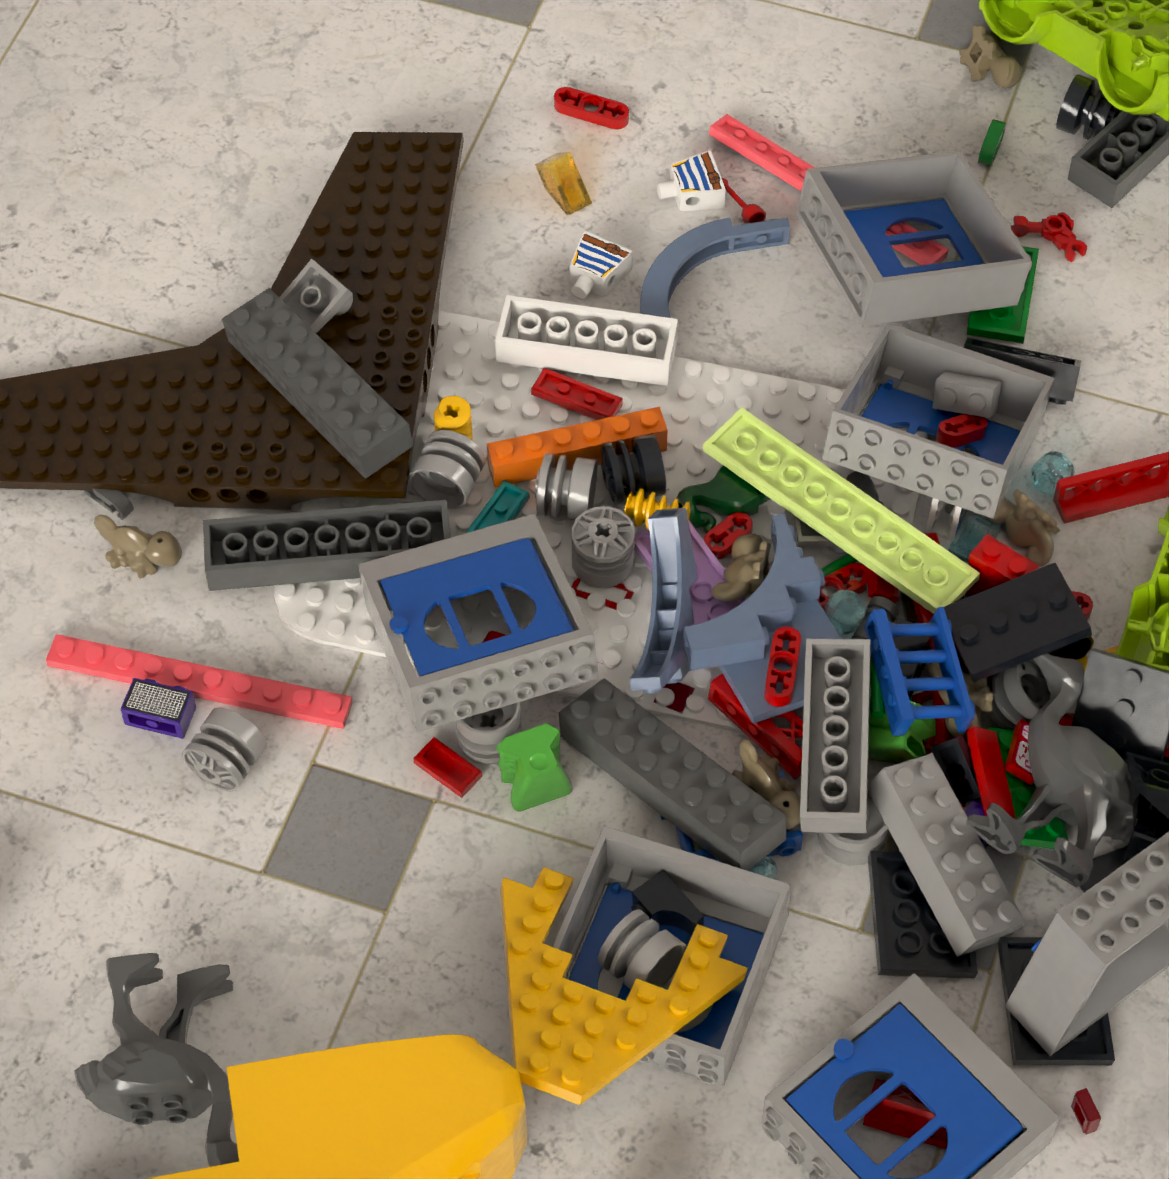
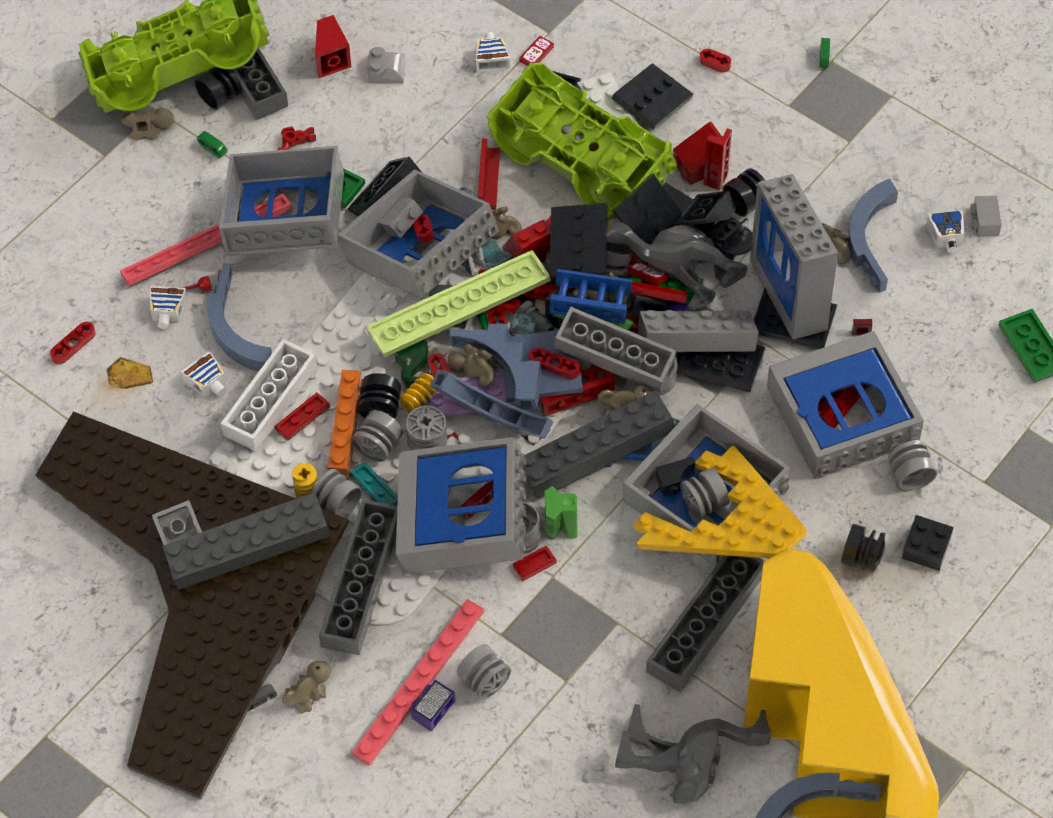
camera: 70 degrees left, 0 degrees up
(363, 1008) = (704, 620): none -> dark grey brick

